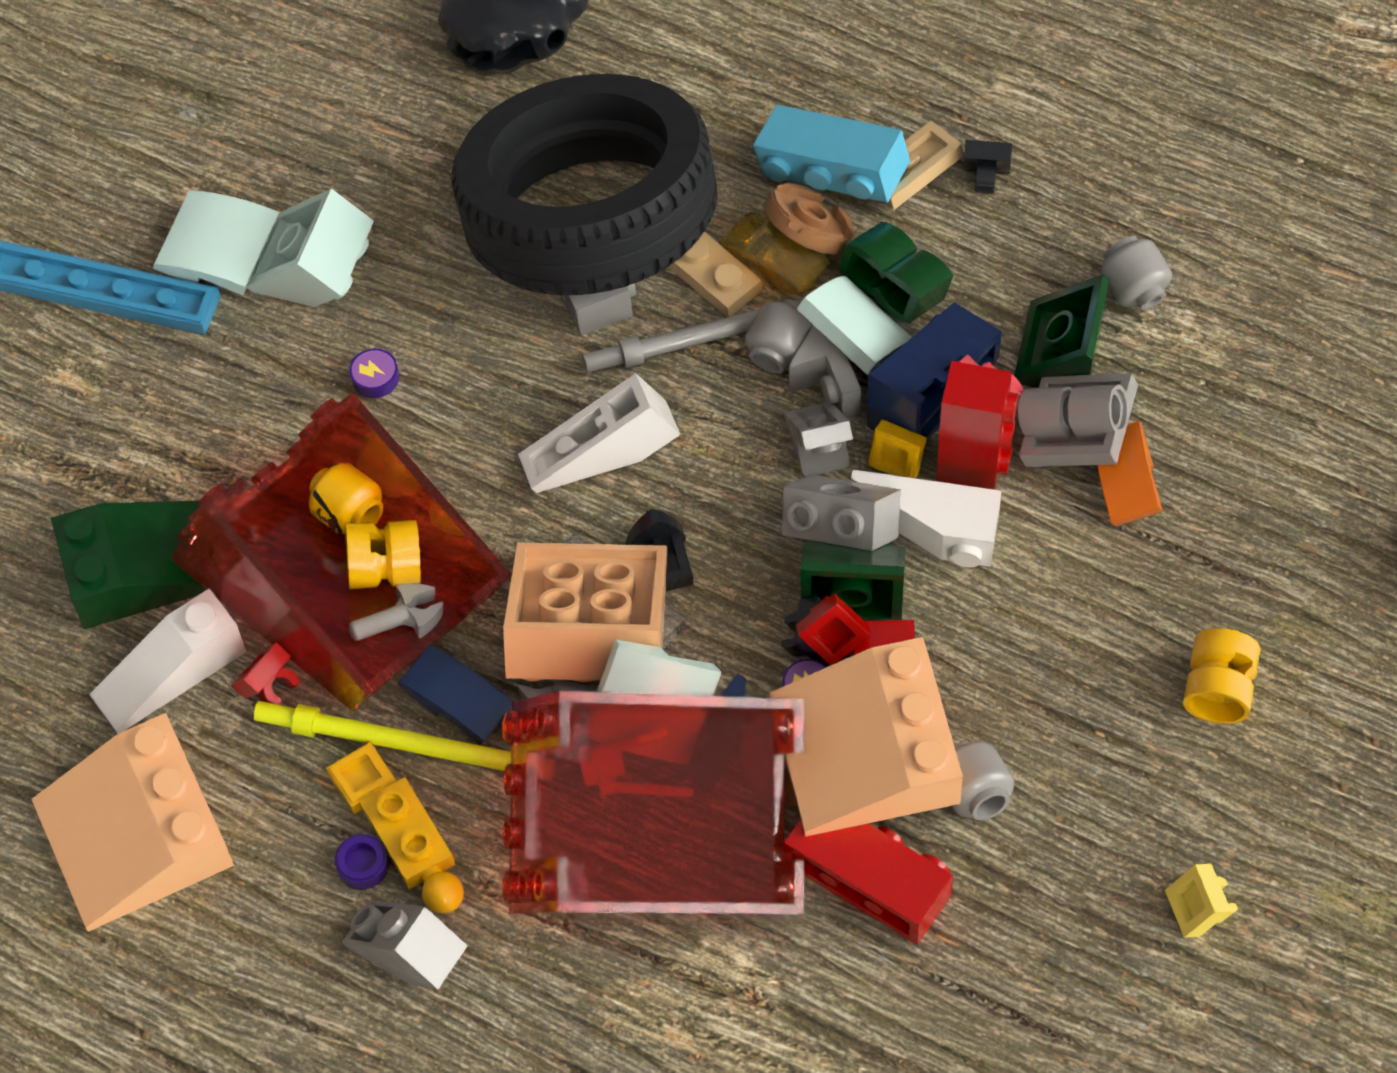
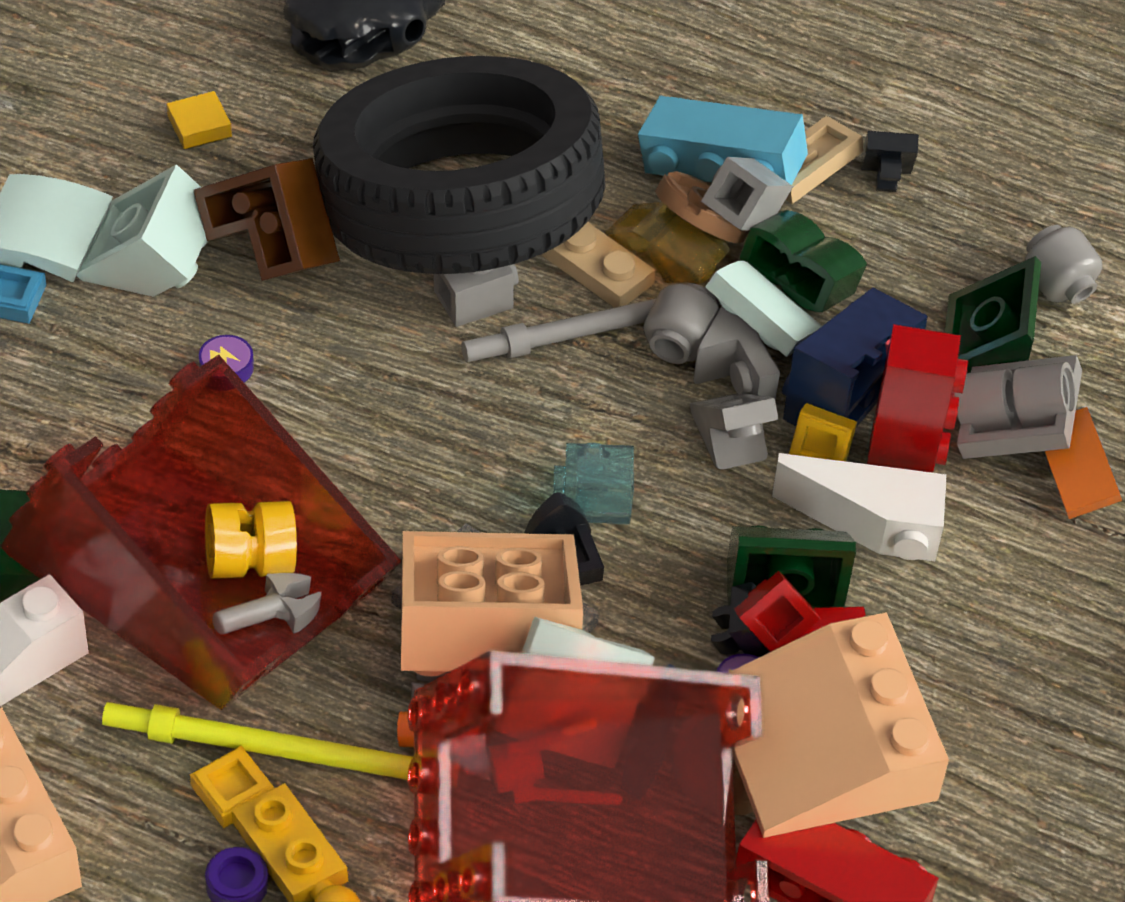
camera: 10 degrees left, 10 degrees down
(262, 672) = (111, 672): red tile -> none
(344, 497) = (199, 478): yellow head -> none
(360, 128) = (199, 120): none -> yellow tile
(422, 232) = (280, 212): none -> reddish brown brick
(456, 692) = (342, 690): dark blue slope -> none
(602, 437) = (493, 423): white slope -> none
(691, 493) = (598, 480): none -> clear light blue brick
(841, 512) = (770, 496): light grey brick -> none
(844, 209) = (746, 192): none -> light grey brick
(985, 782) = (965, 784): light grey head -> none

